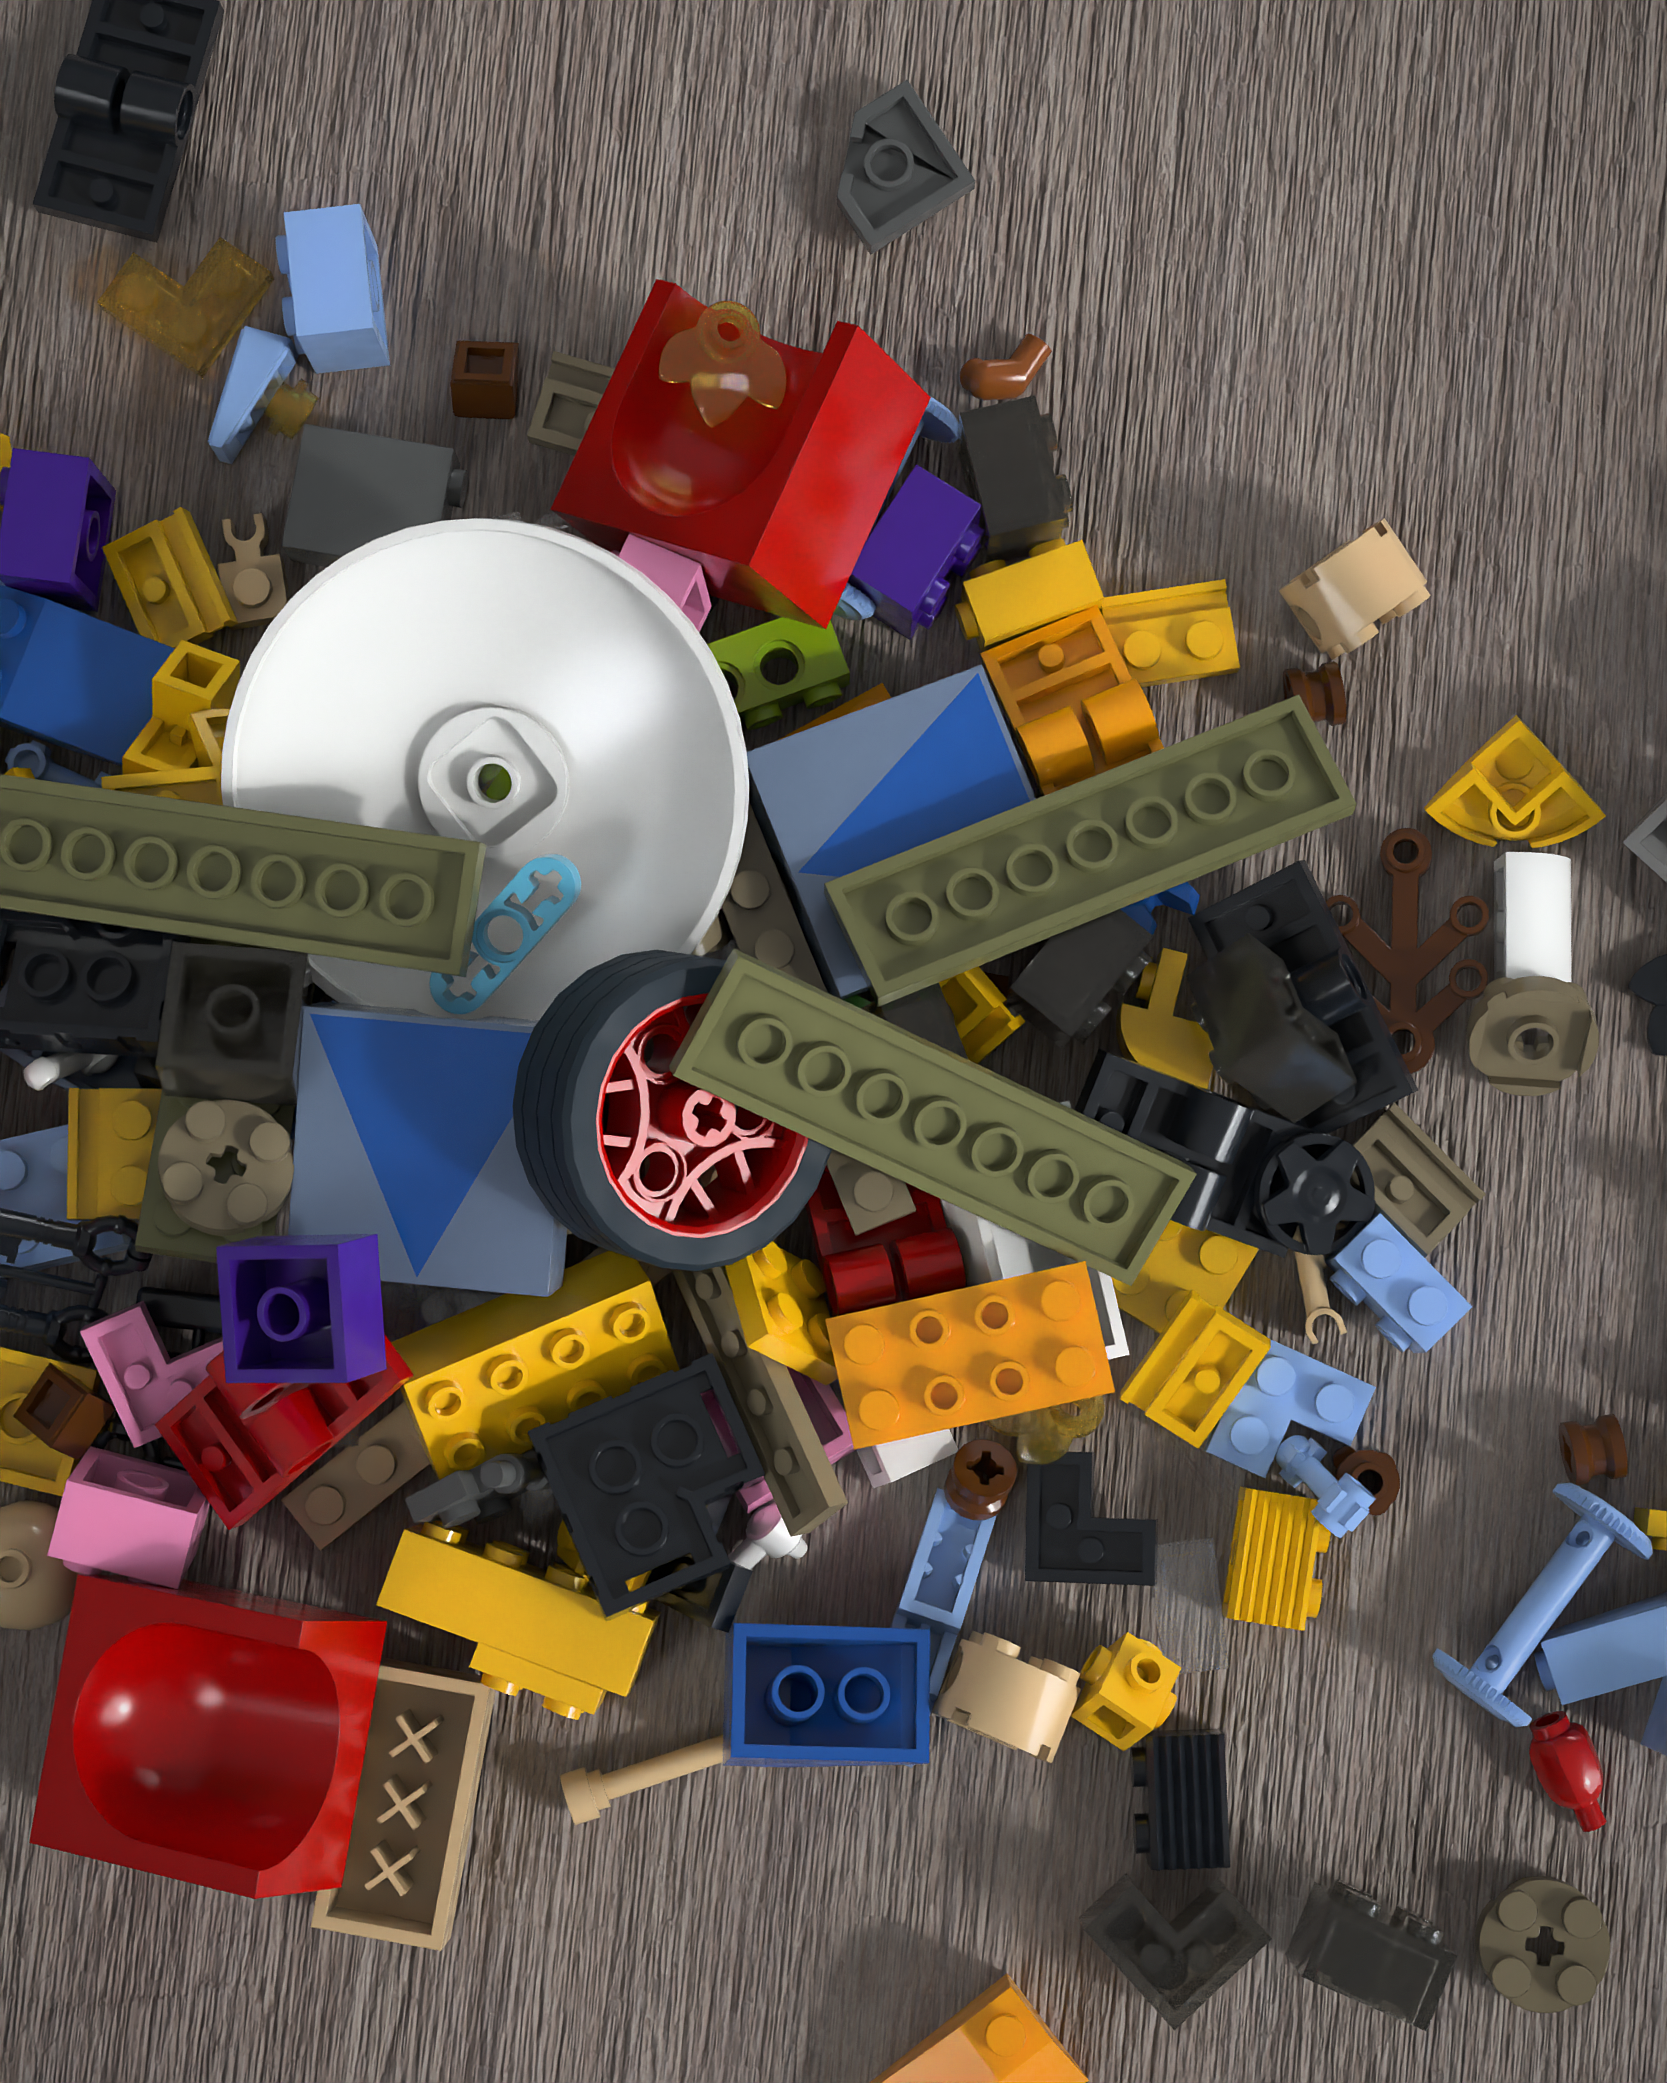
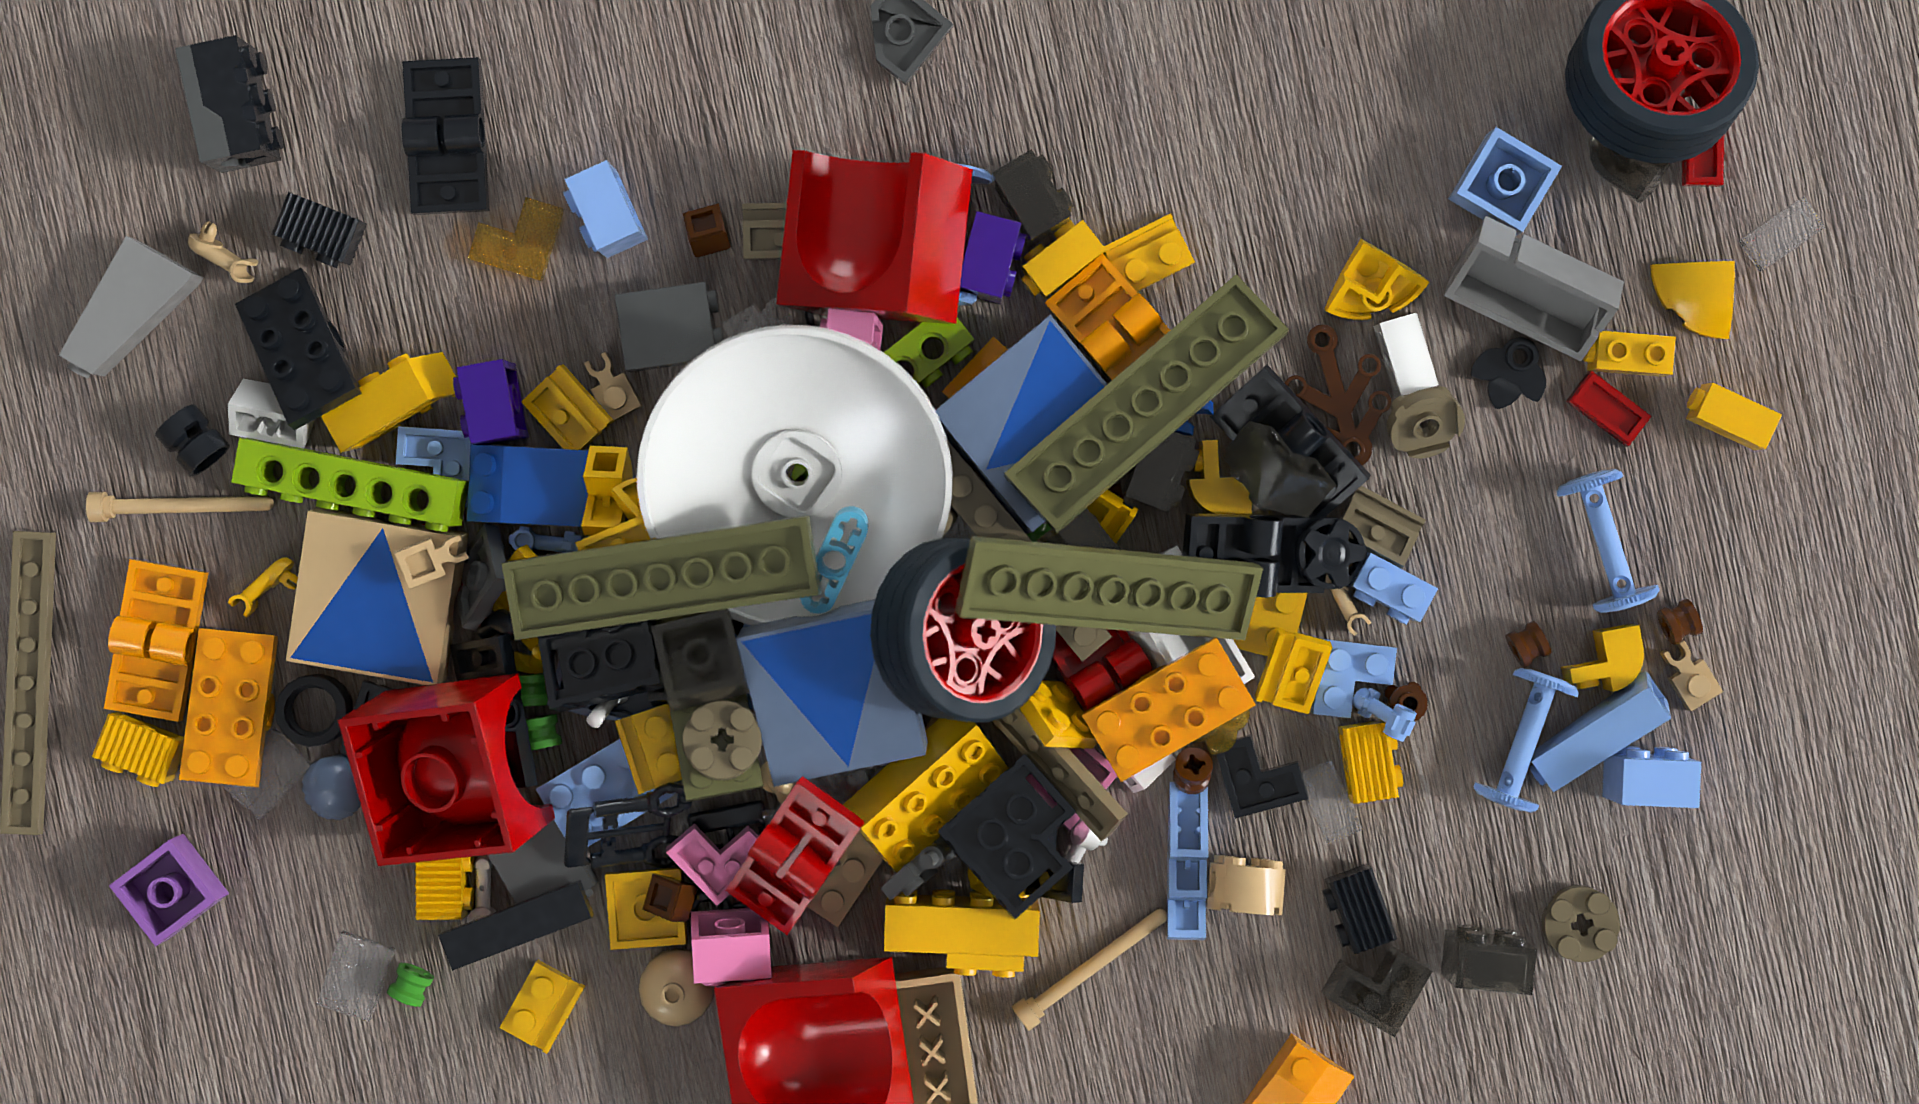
camera: 15 degrees left, 5 degrees up
(255, 374) = (574, 277): light blue slope -> none
(290, 408) = (601, 285): clear yellow plate -> none
(301, 1308) = (794, 808): dark purple brick -> none
(723, 370) = (850, 191): plate -> none
(826, 1696) = (1146, 918): blue slope -> none
(1005, 377) = (1006, 134): dark orange arm -> none
(1126, 1690) = (1310, 861): yellow brick -> none
(1320, 692) = (1243, 263): reddish brown wheel -> none
(1354, 588) = (1247, 198): tan brick -> none
(1568, 1767) = (1566, 823): red plant -> none

